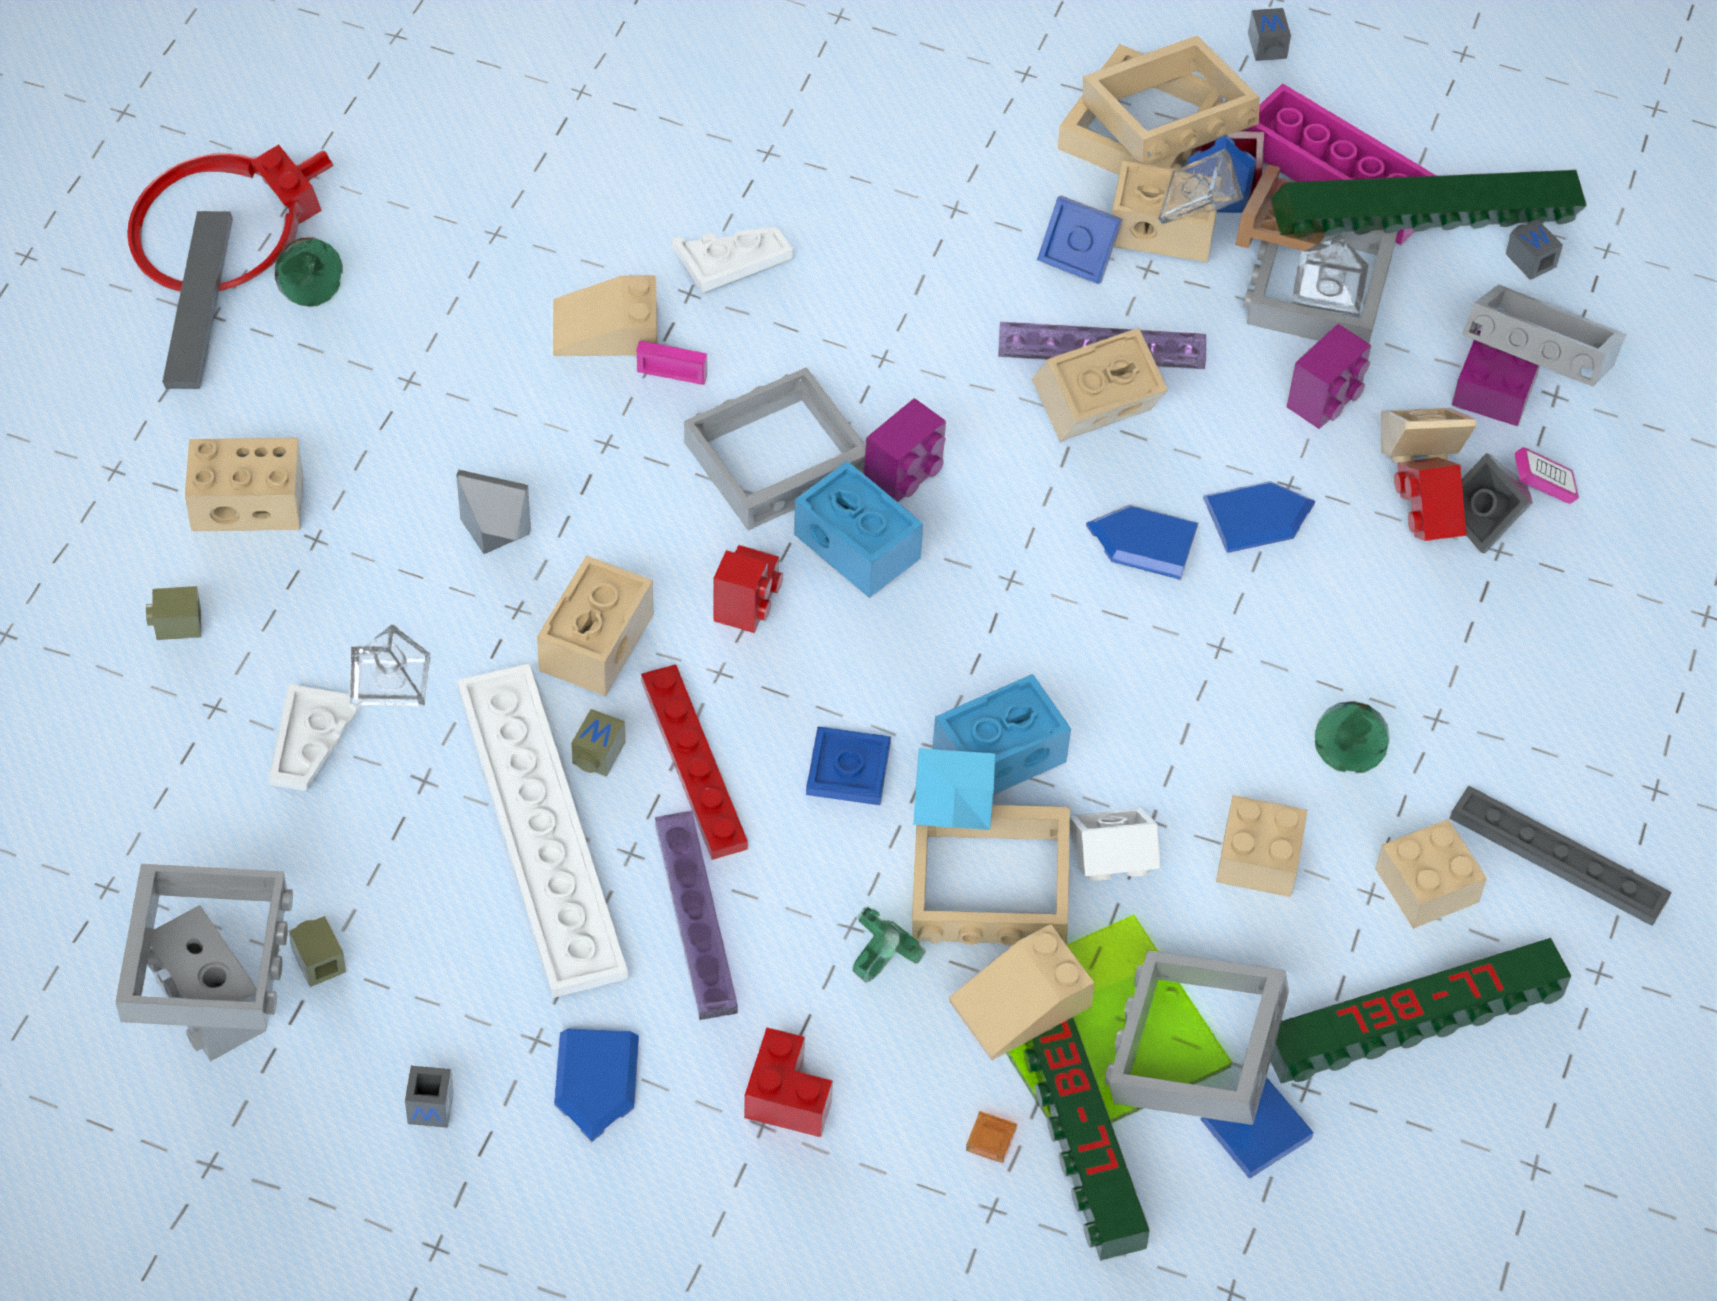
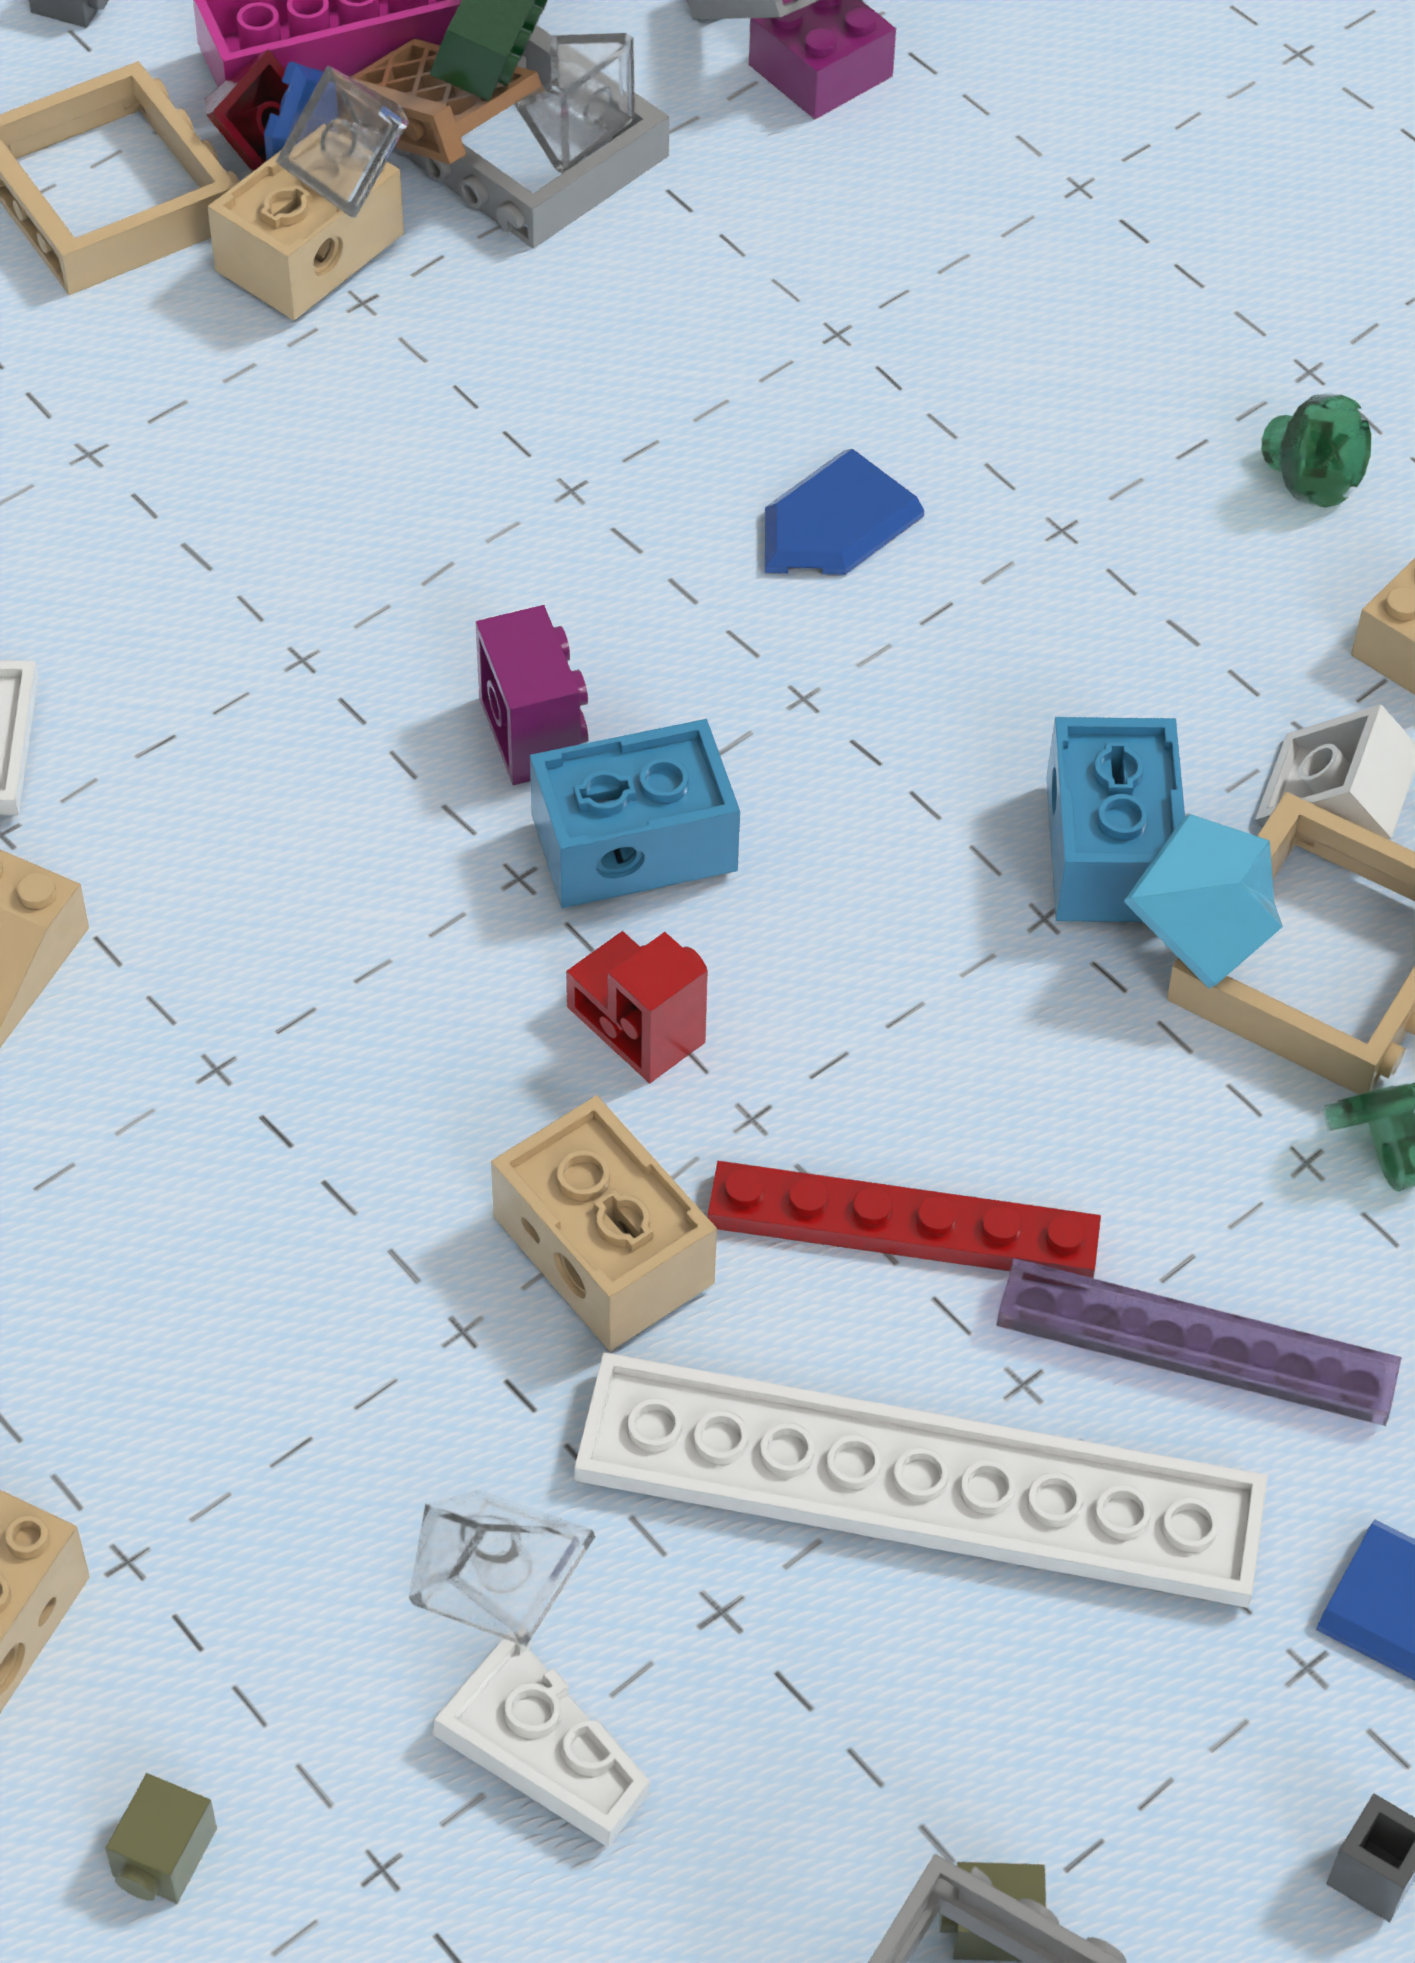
camera: 60 degrees left, 0 degrees up
(493, 509) = (280, 1265): slope -> none
(598, 743) = (811, 1327): olive brick -> none
(671, 362) = (136, 907): dark pink tile -> none
(757, 404) = (382, 765): light grey window -> none
(848, 765) = (1024, 1033): blue tile -> none
(1049, 340) = (470, 406): clear purple plate -> none
(1079, 239) = (283, 331): tile -> none
(1099, 384) = (569, 425): tan piece -> none
(1154, 68) = (147, 174): tan window -> none
(1257, 514) = (869, 387): blue tile -> none
(1329, 376) = (719, 192): magenta brick -> none
(1424, 432) = (877, 139): tan slope -> none
(1435, 497) = (982, 180): red brick -> none
(1492, 501) = (1020, 149): dark grey slope -> none
(1546, 475) = (1012, 76): tile -> none

